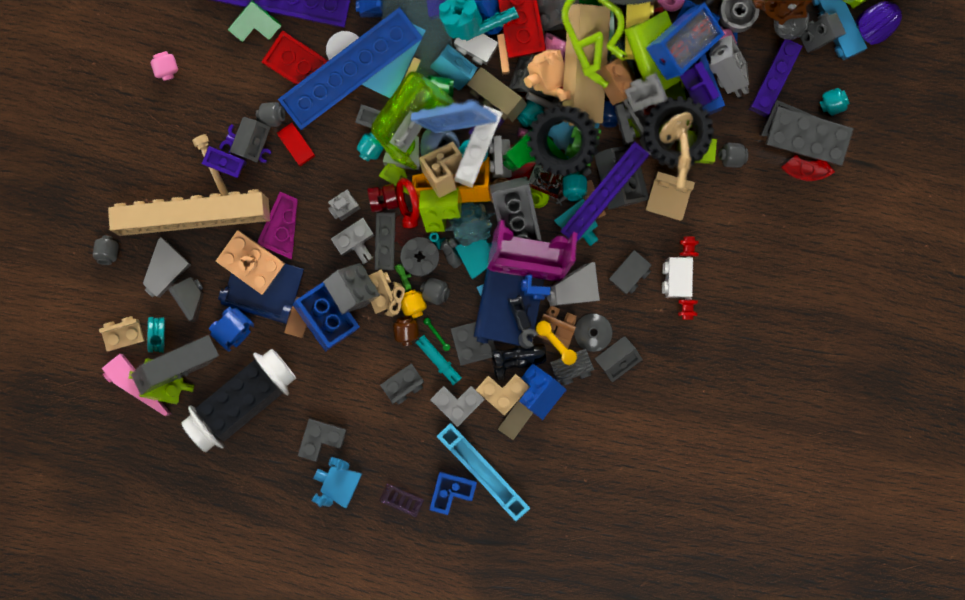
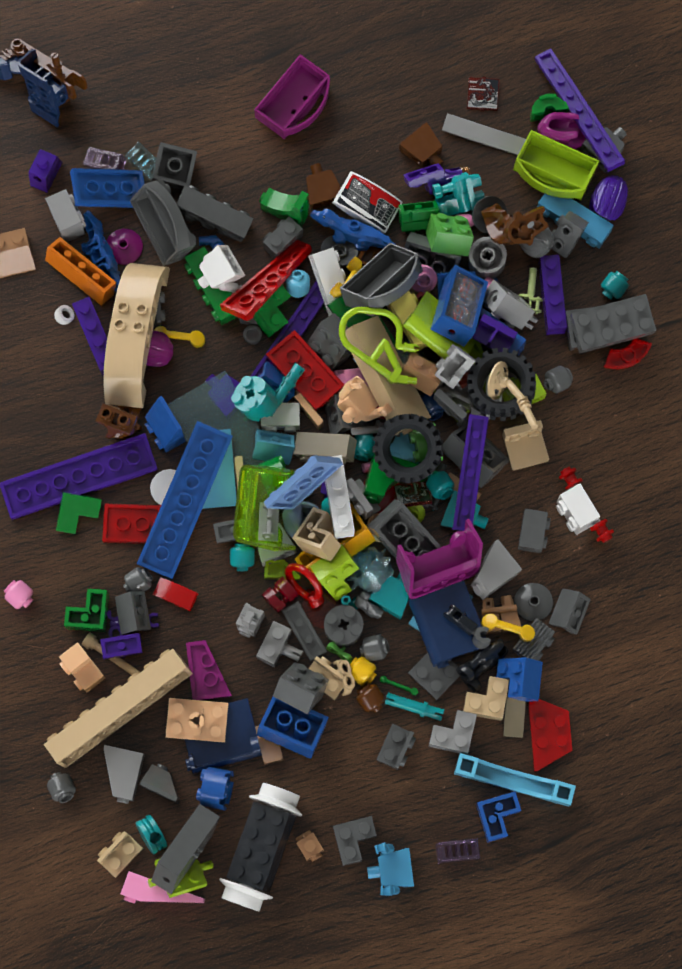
camera: 30 degrees left, 10 degrees down
(181, 160) = (82, 668): none -> light nougat brick
(214, 122) = (93, 616): none -> green brick
(280, 423) = (309, 846): none -> medium nougat brick
(537, 450) = (549, 733): none -> red wing
(538, 293) = (464, 593): blue bracket -> none
(759, 63) = (531, 291): none -> yellowish green piece

